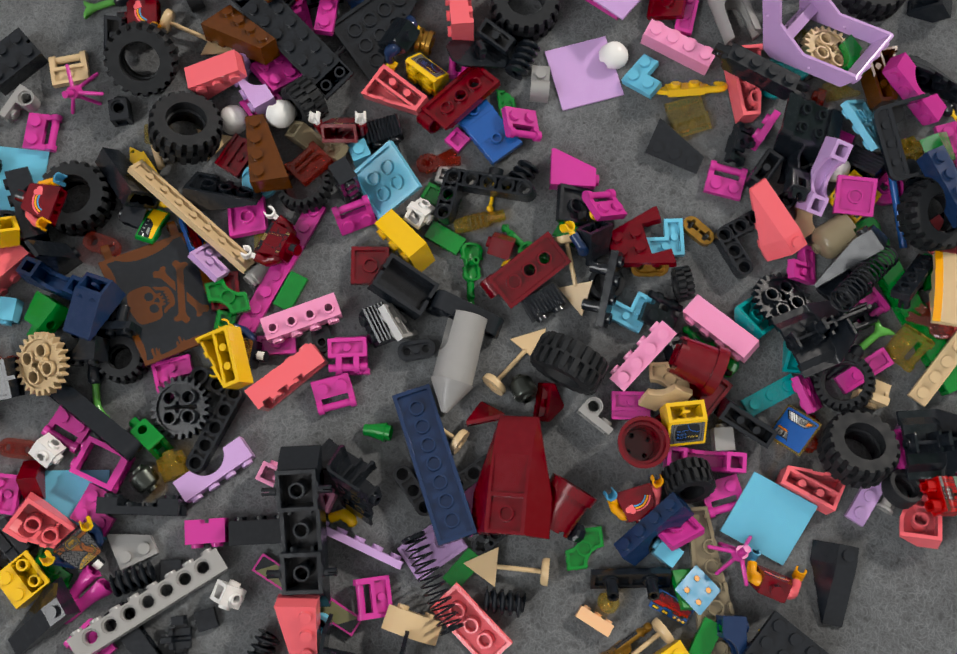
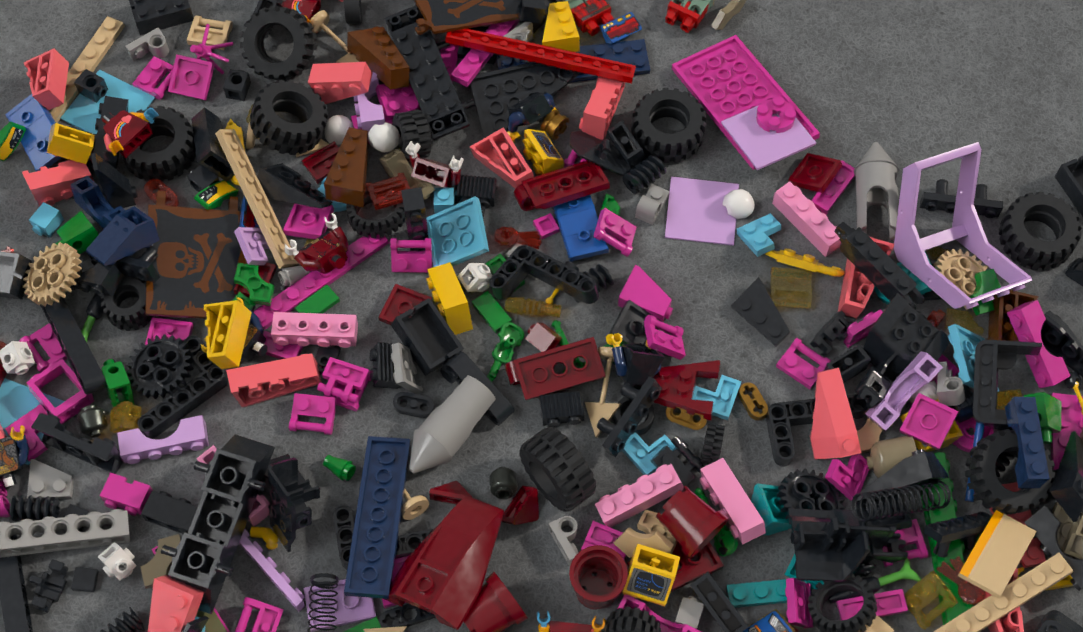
camera: 25 degrees right, 15 degrees down
(74, 121) = (191, 77): none -> dark pink plate
(265, 588) = (160, 563): none -> dark tan tile
(527, 344) = (476, 466): tan piece -> none
(856, 159) = (949, 388): none -> light grey plate

